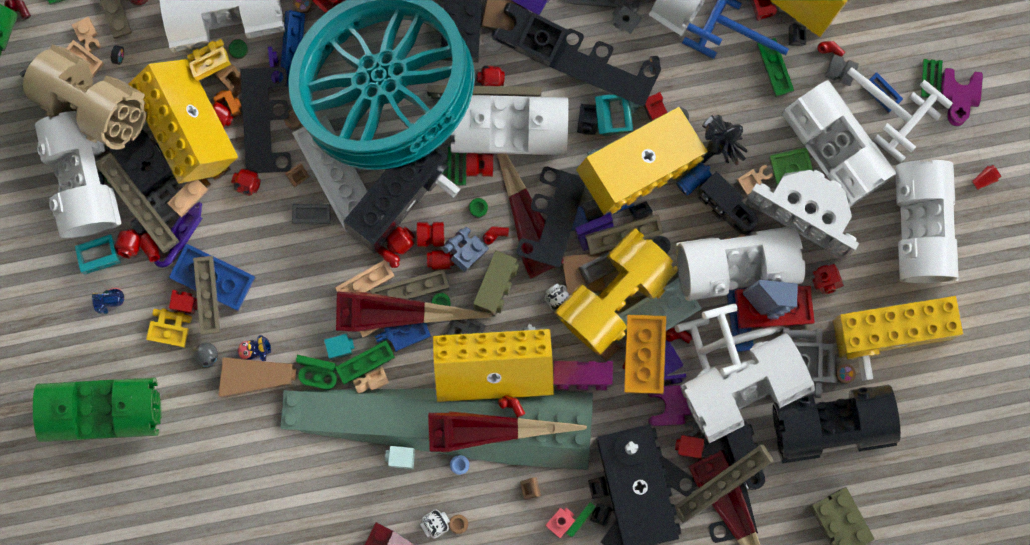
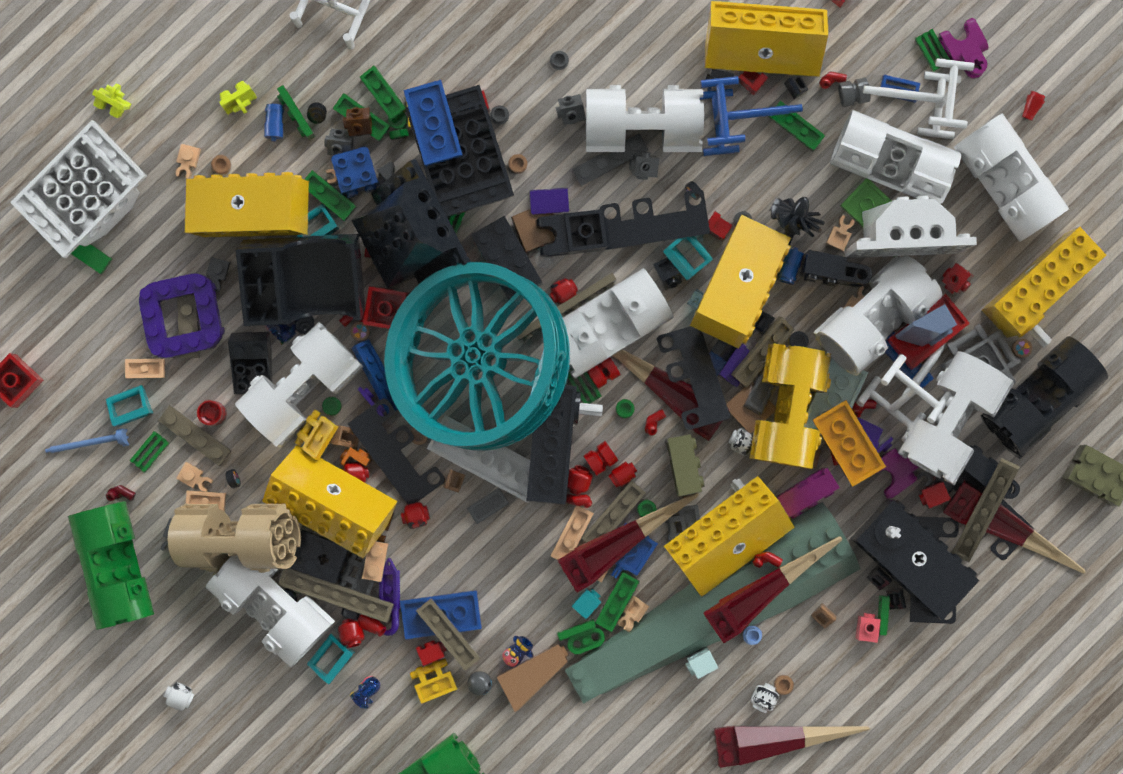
camera: 30 degrees left, 5 degrees up
(469, 253) = (644, 454): sand blue plate -> none

